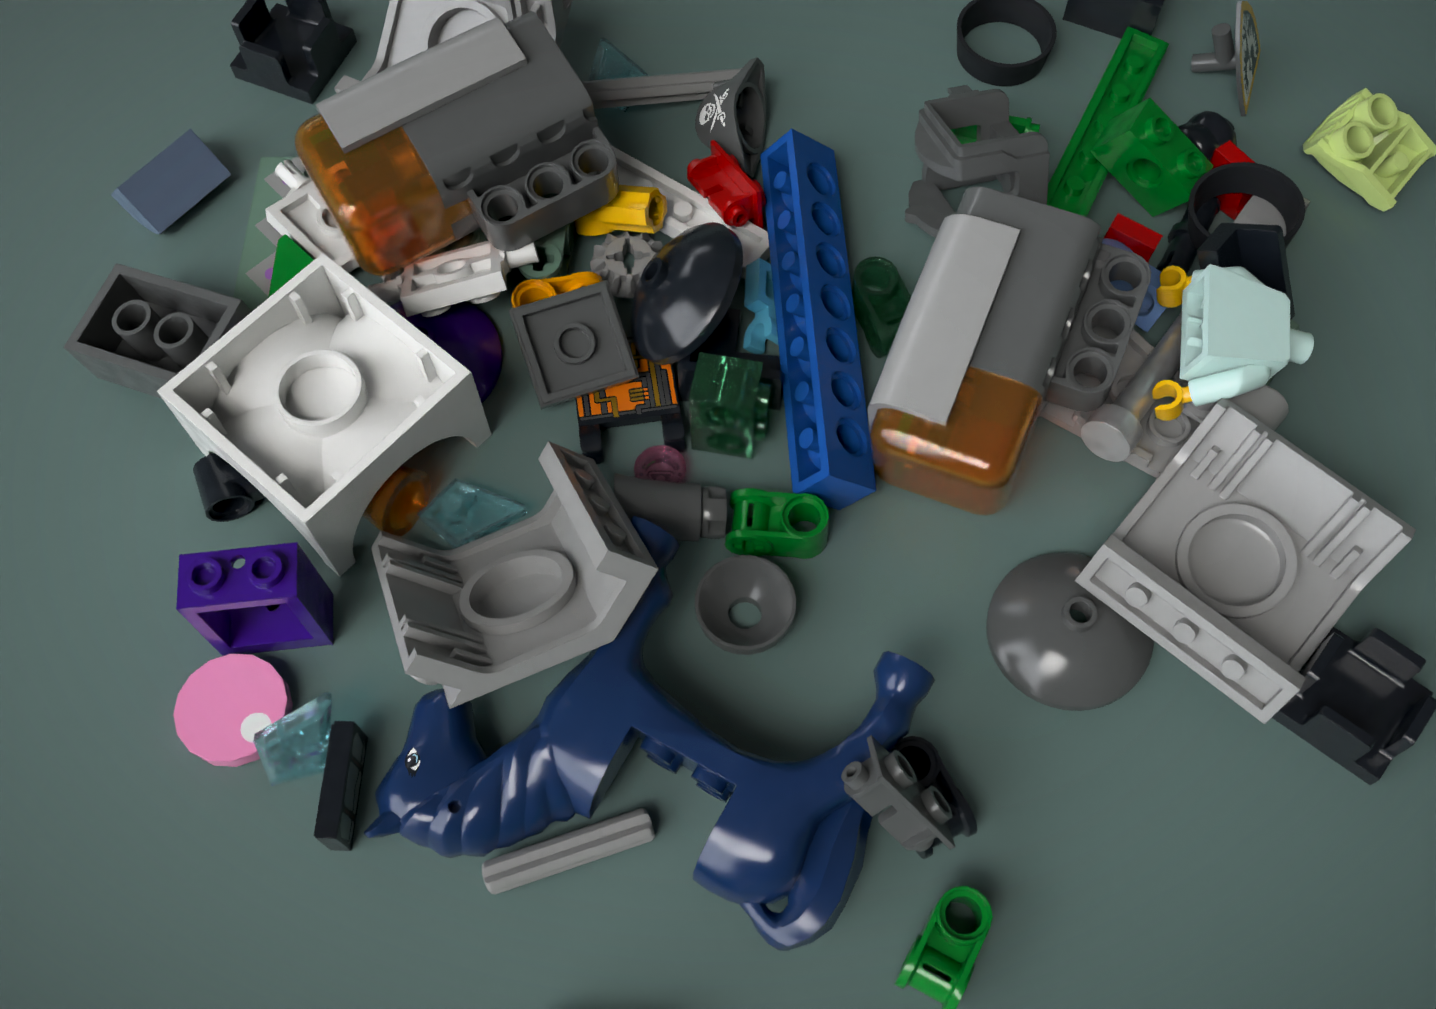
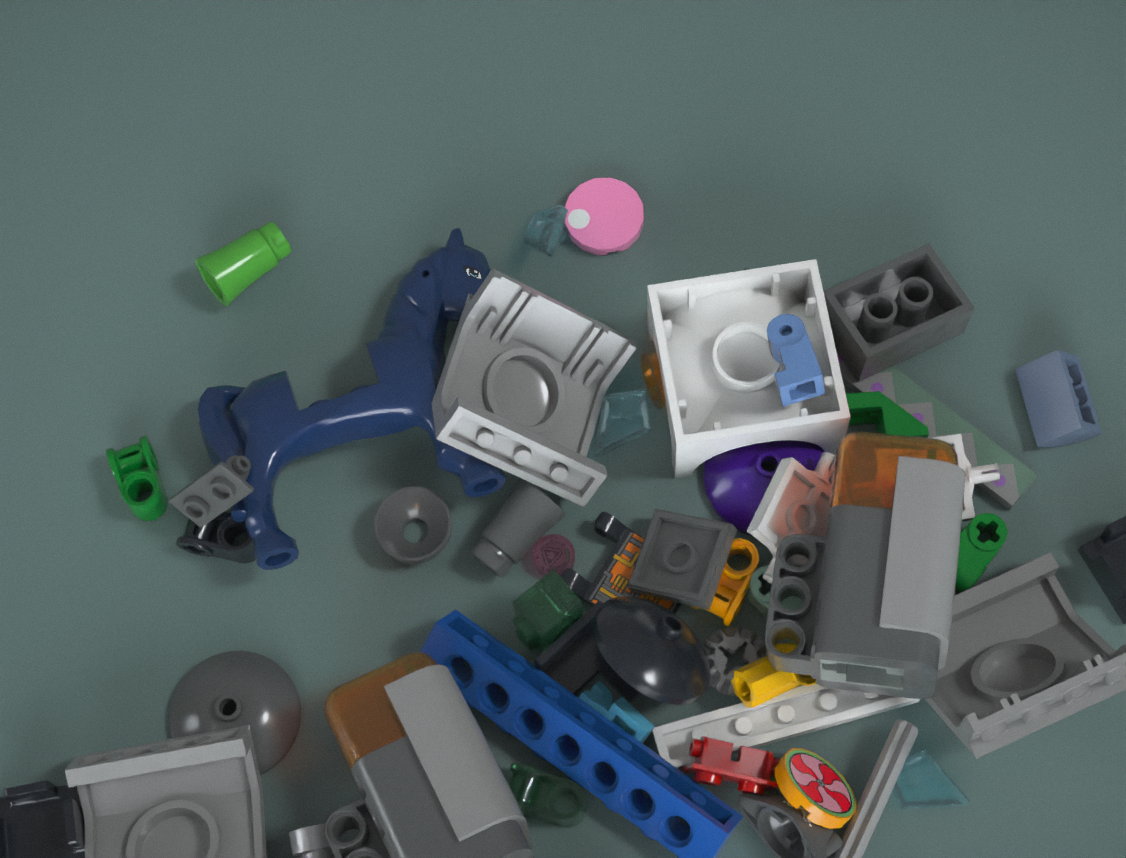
camera: 135 degrees right, 5 degrees up
(237, 605) = (645, 242): dark purple window -> none
(294, 318) = (793, 349): none -> medium blue leg
(341, 786) = (502, 239): black tile -> none
(567, 851) = (365, 330): light grey axle -> none
(690, 119) = (815, 786): none -> tile
(772, 524) = (456, 583): green piece -> none

